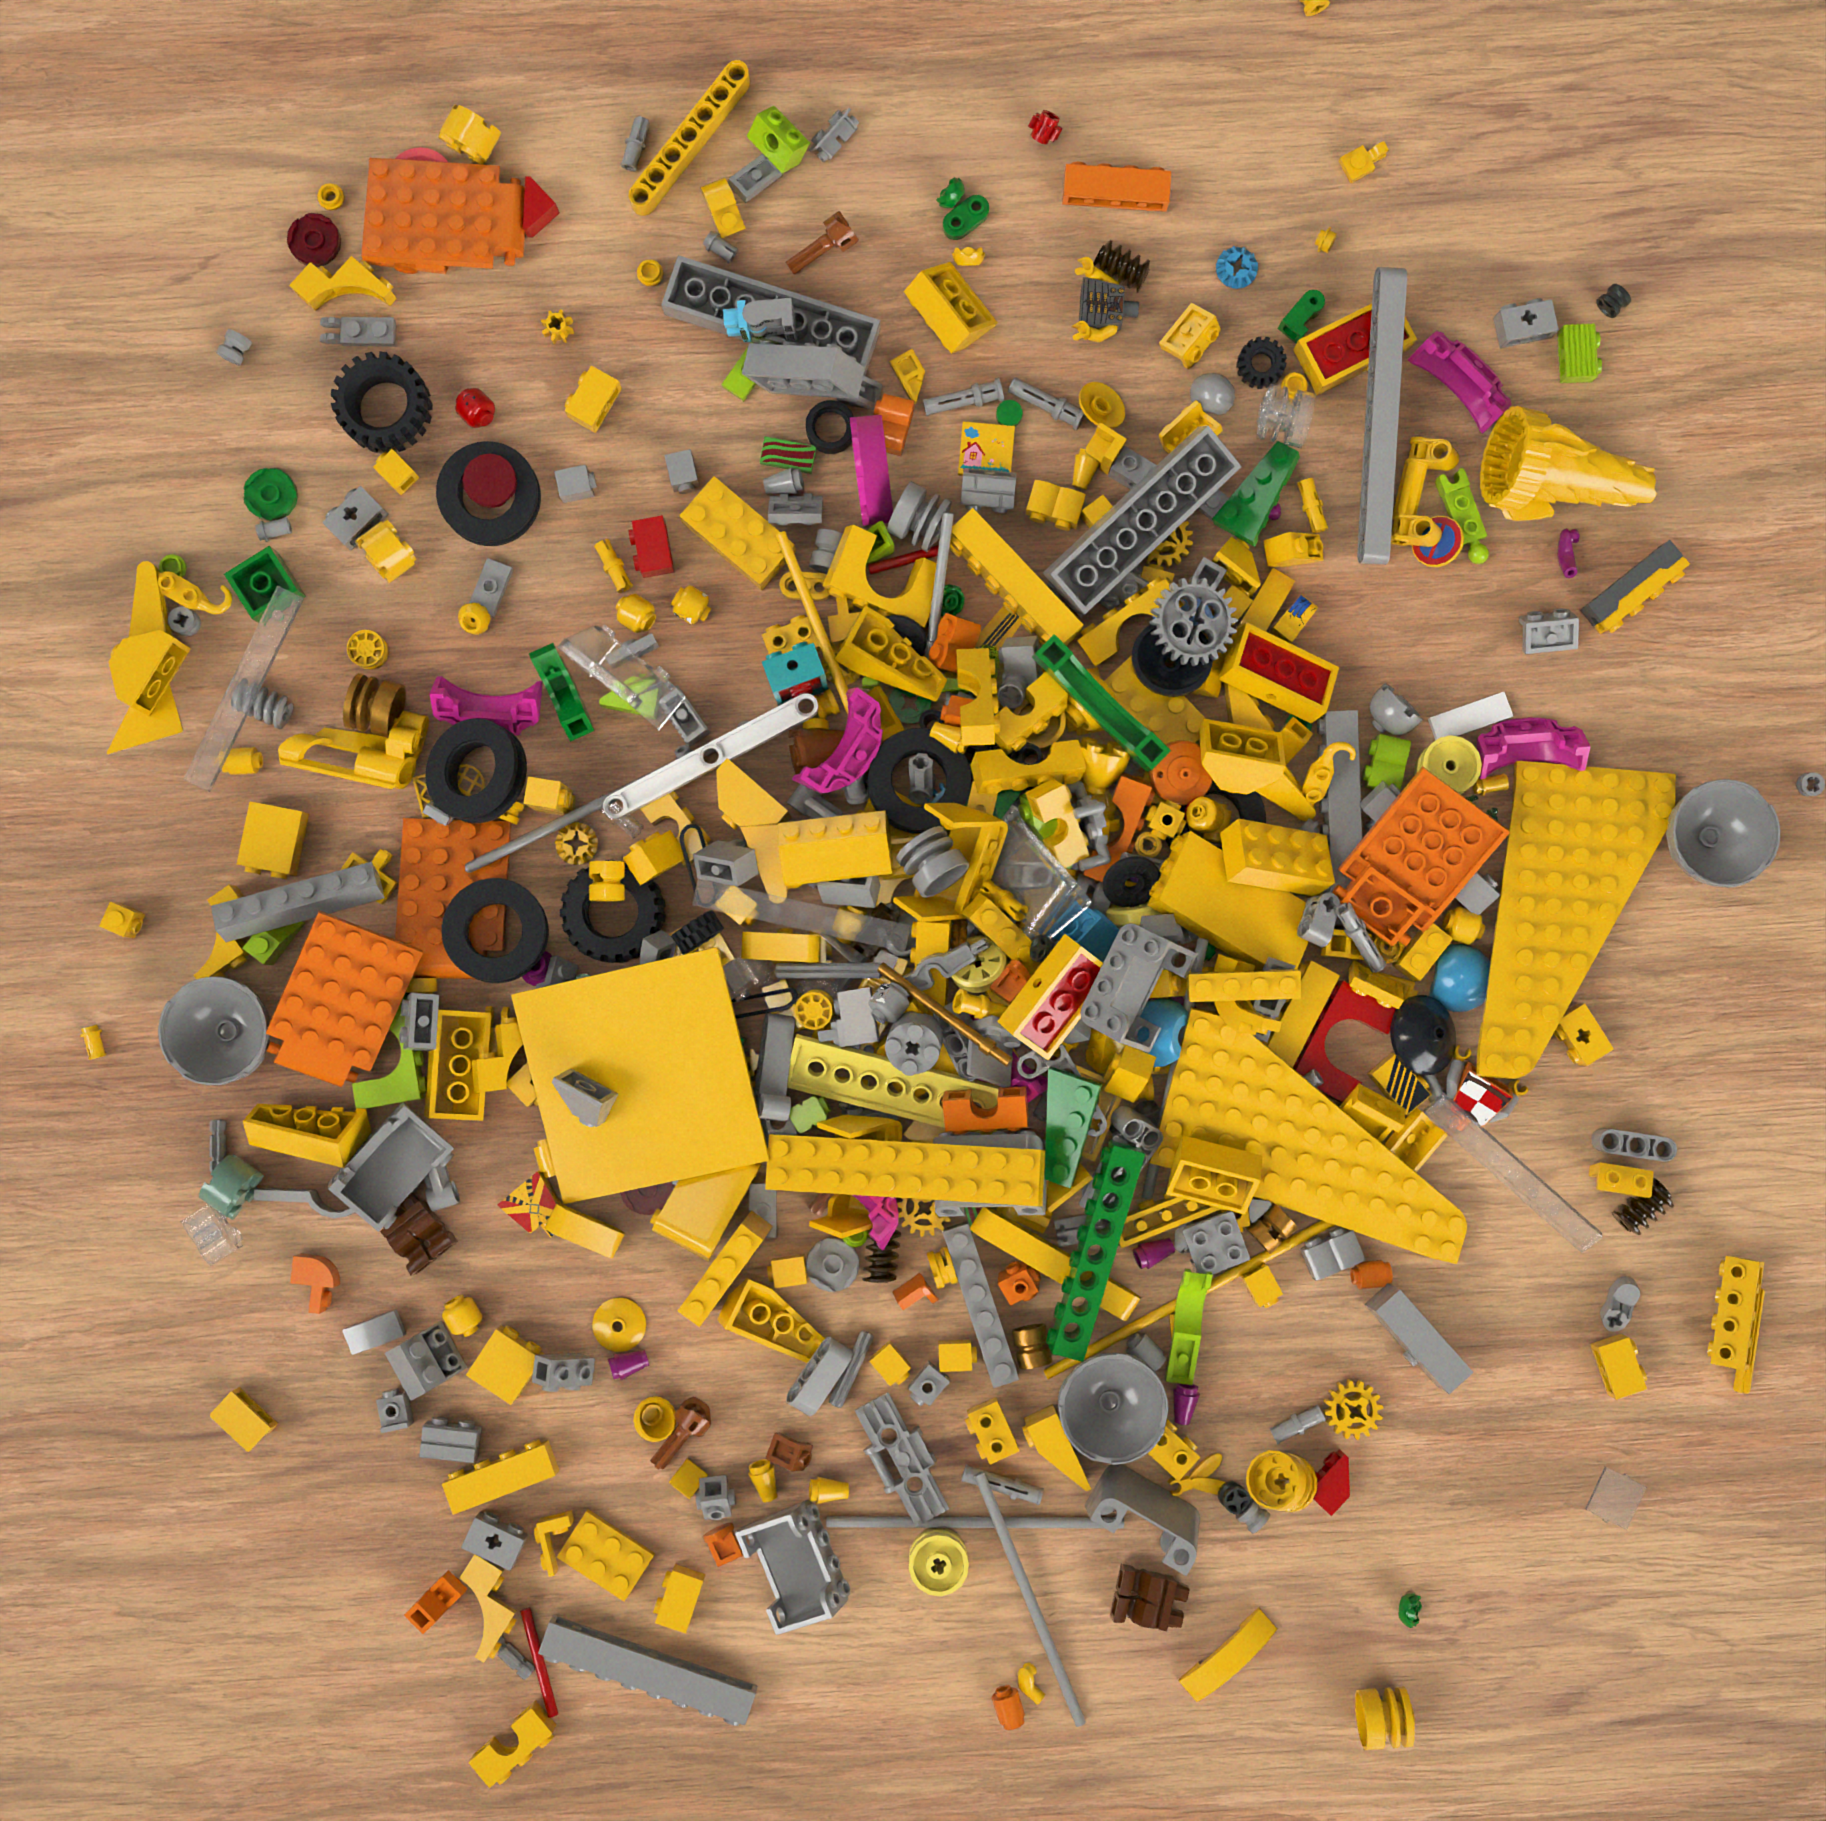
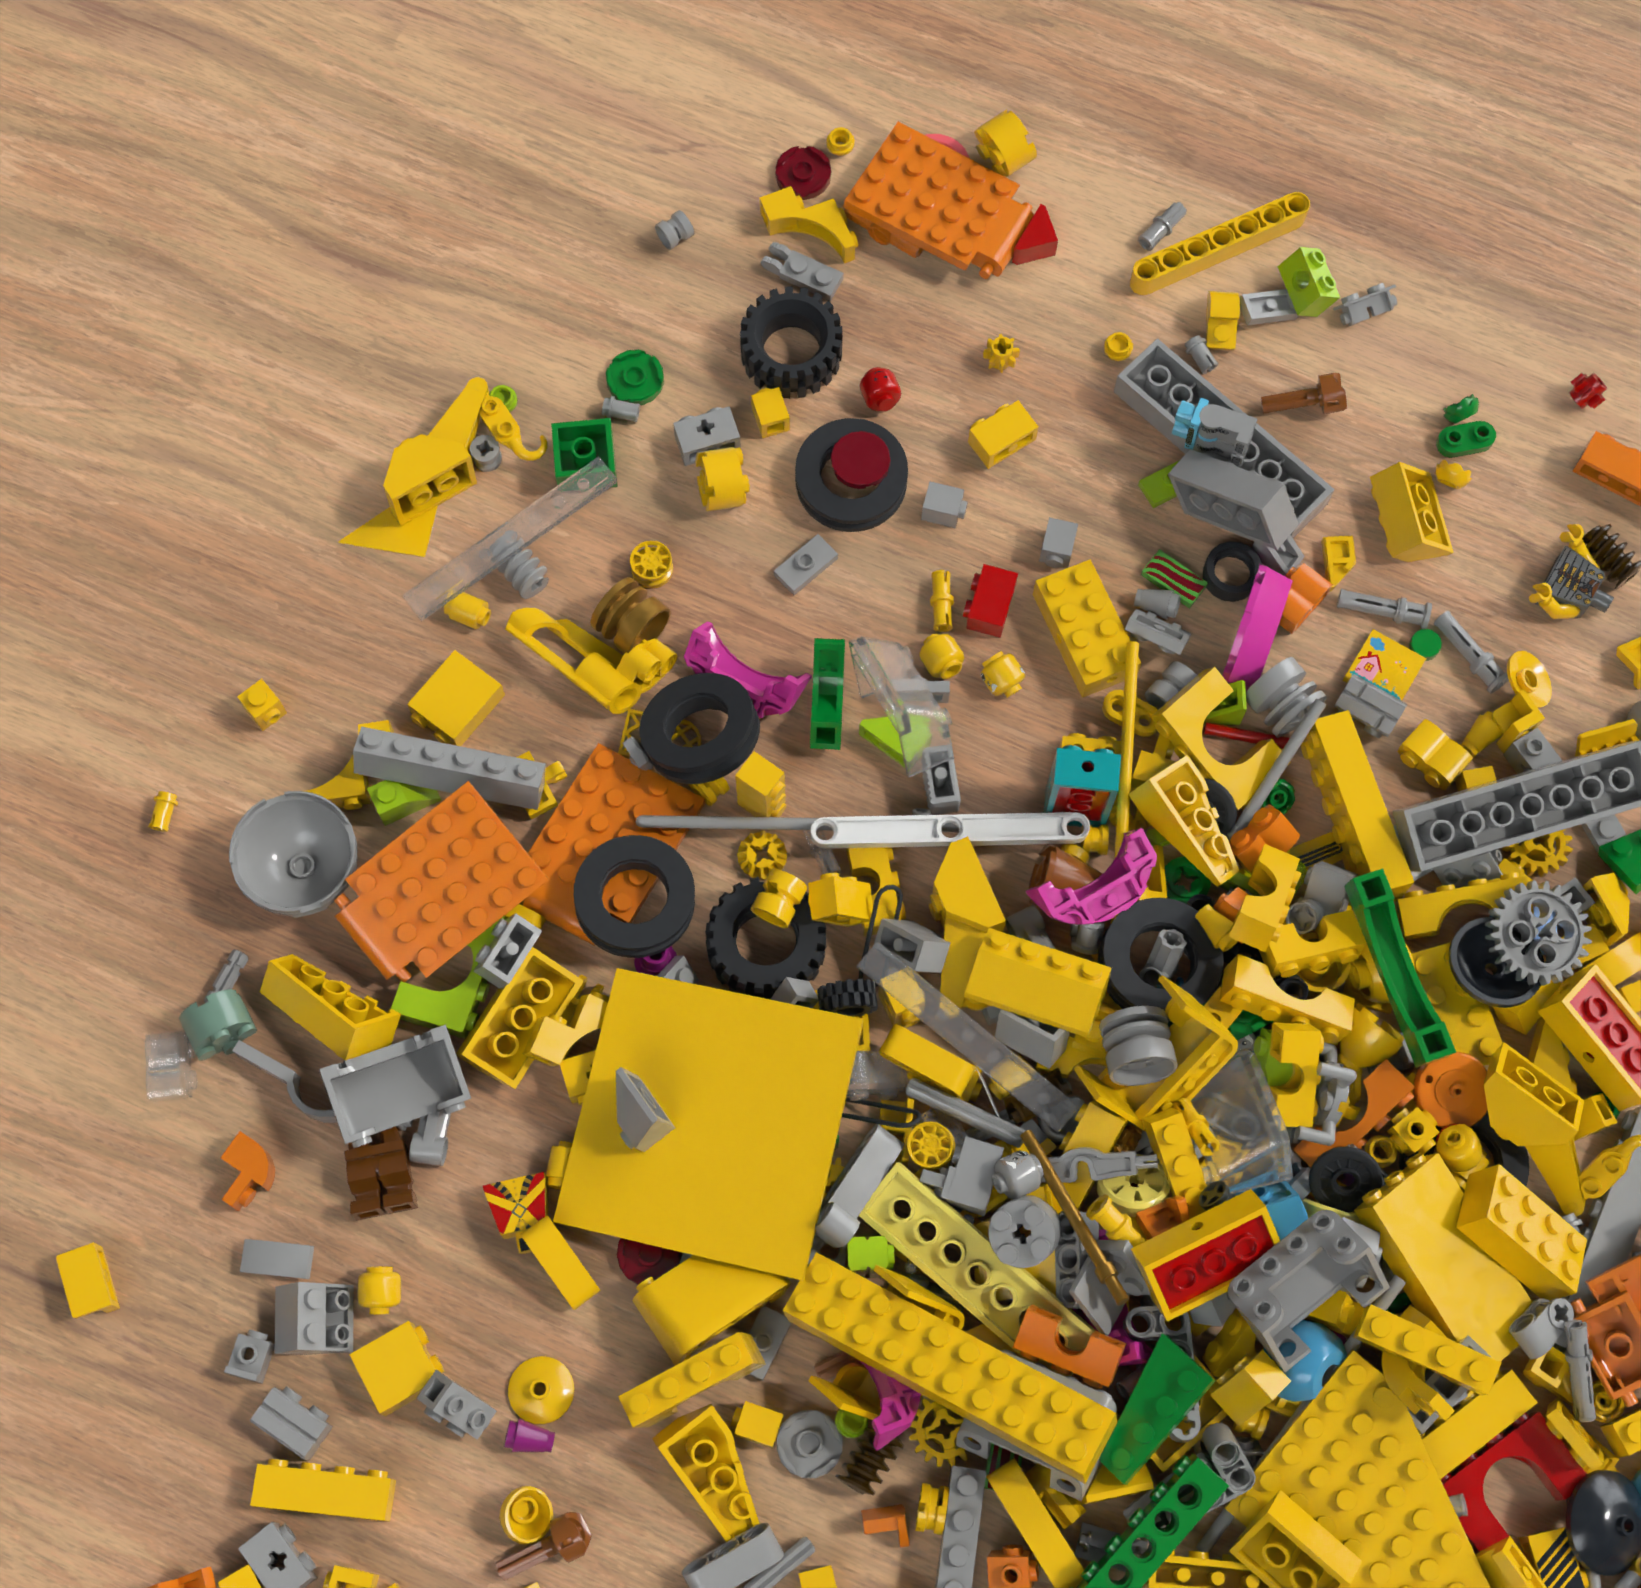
camera: 30 degrees right, 15 degrees down
(475, 611) = (782, 582): yellow plate -> none

